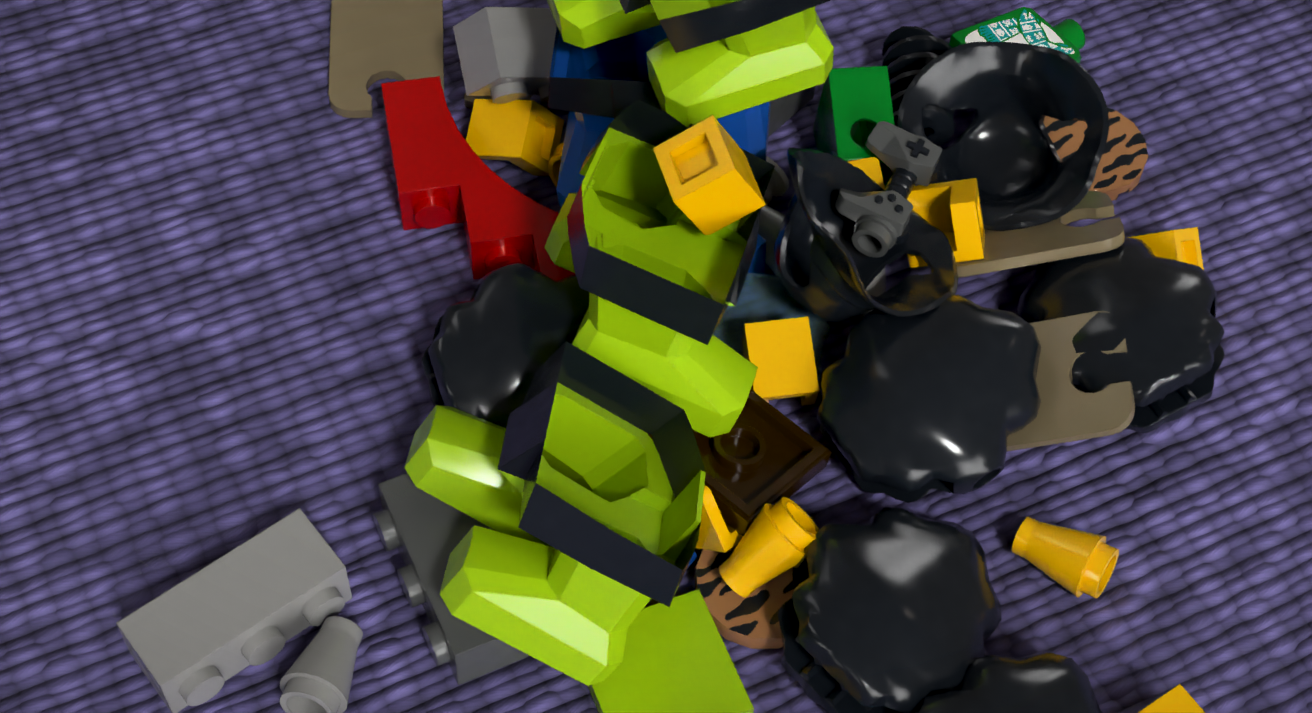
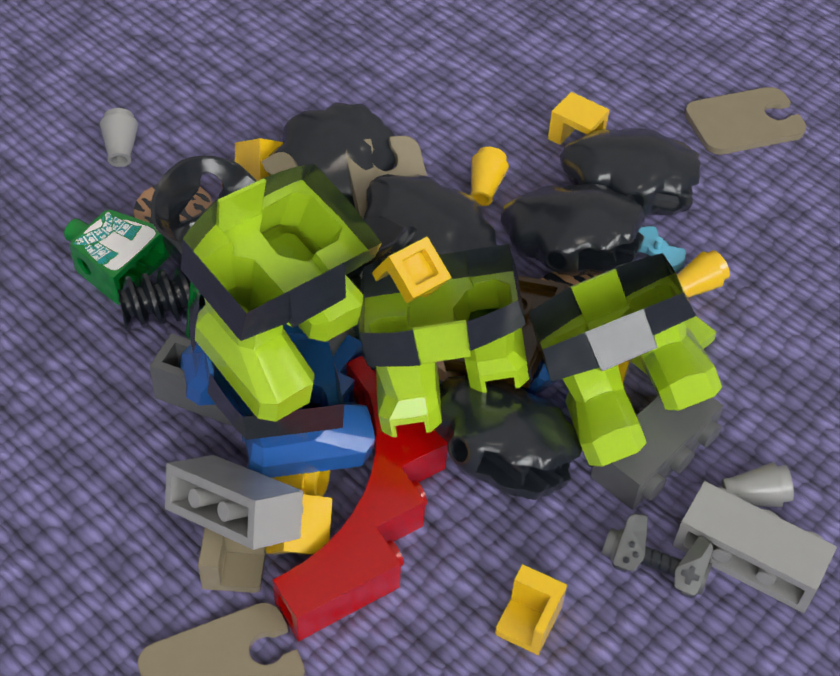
camera: 110 degrees left, 5 degrees down
(292, 330) = (531, 610): none -> yellow panel
(312, 464) = (629, 549): none -> dark grey piece
(769, 546) = (566, 268): yellow cone -> none
(1254, 118) = (119, 134): none -> light grey cone

